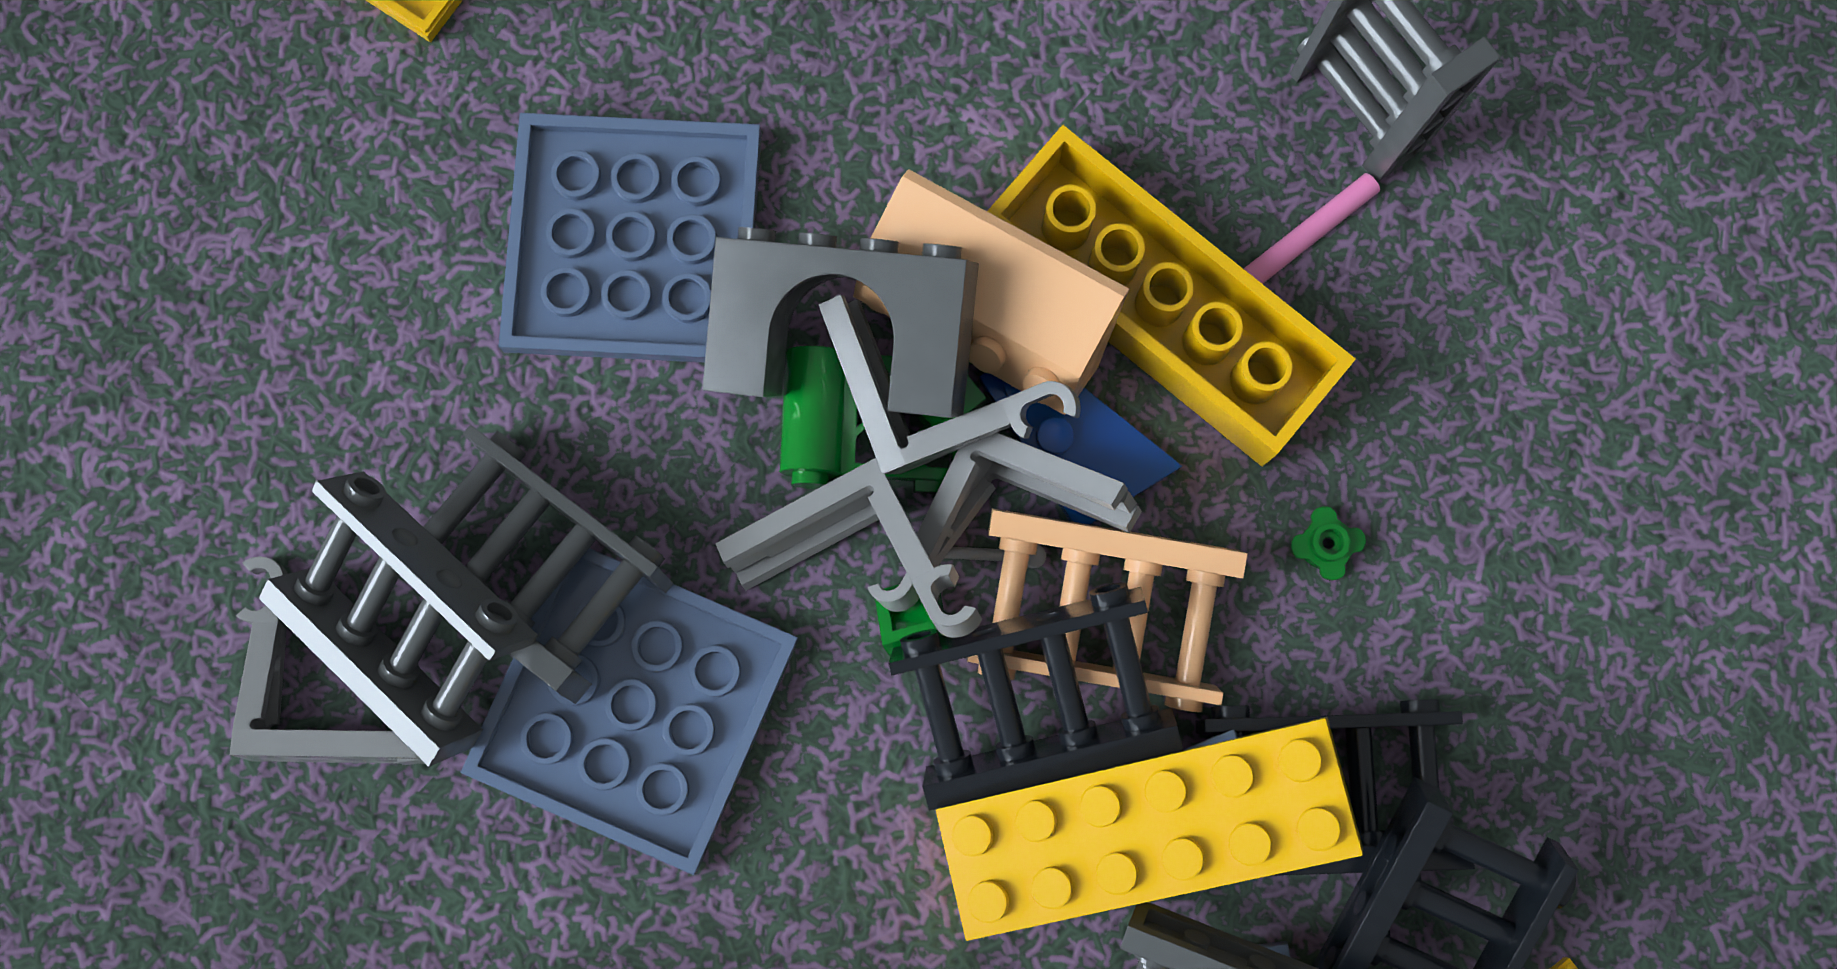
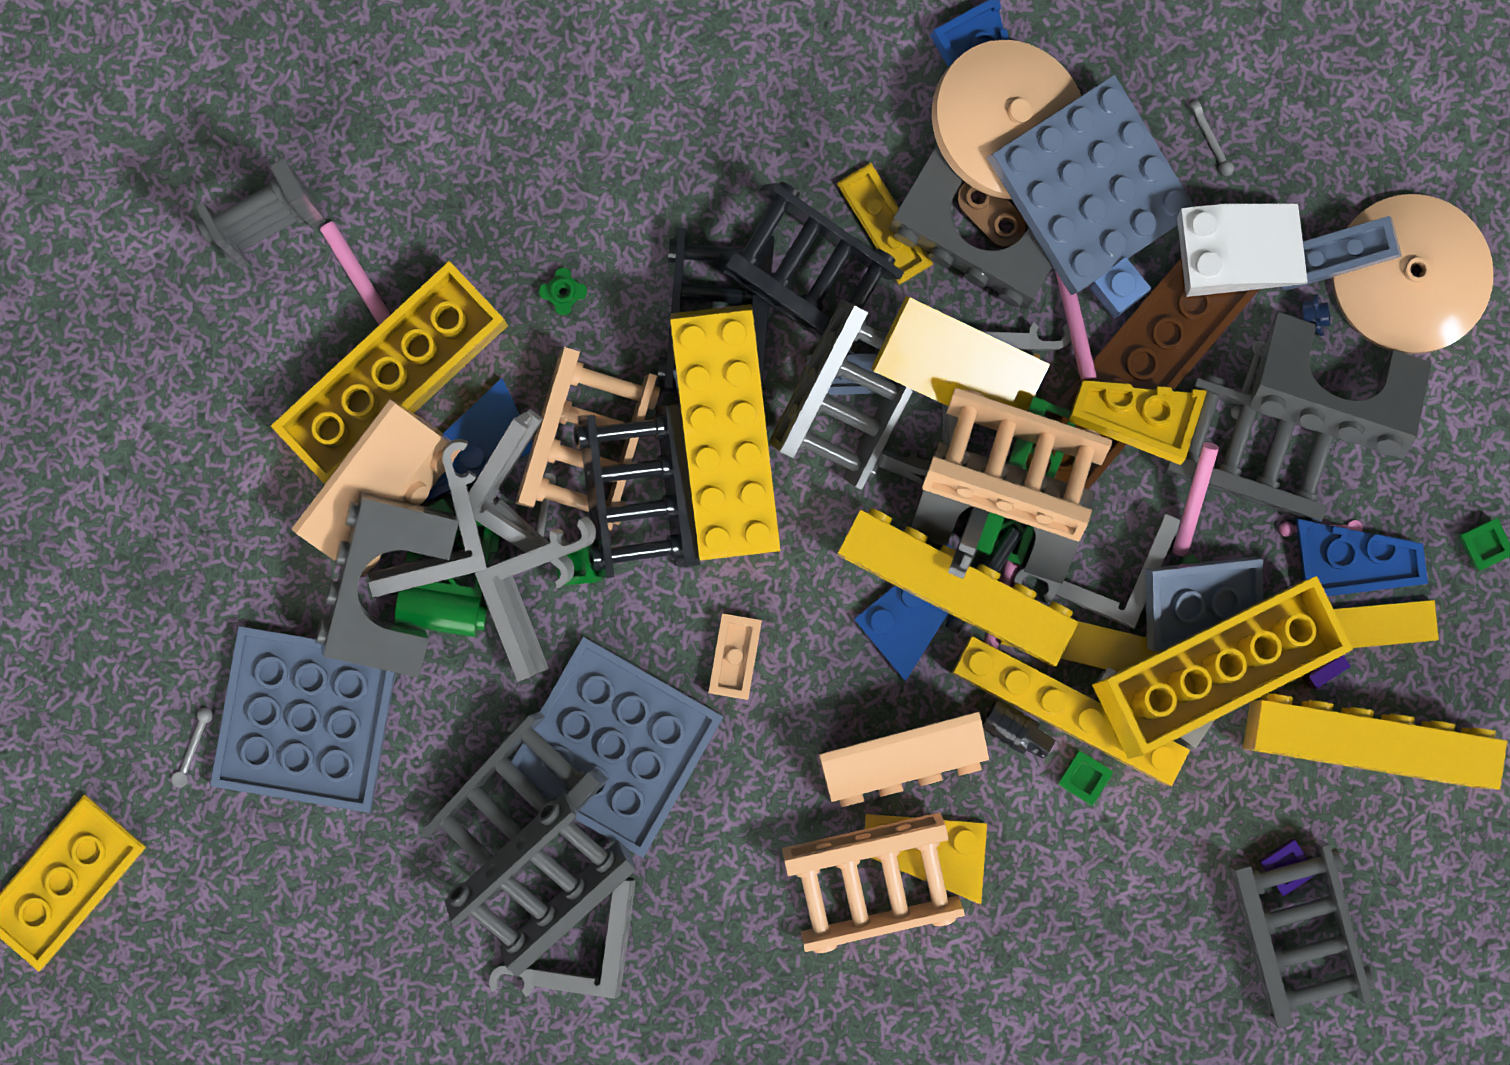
camera: 80 degrees left, 5 degrees up
(532, 76) = (180, 778): none -> light grey hinge
(791, 882) = (735, 656): none -> light nougat plate

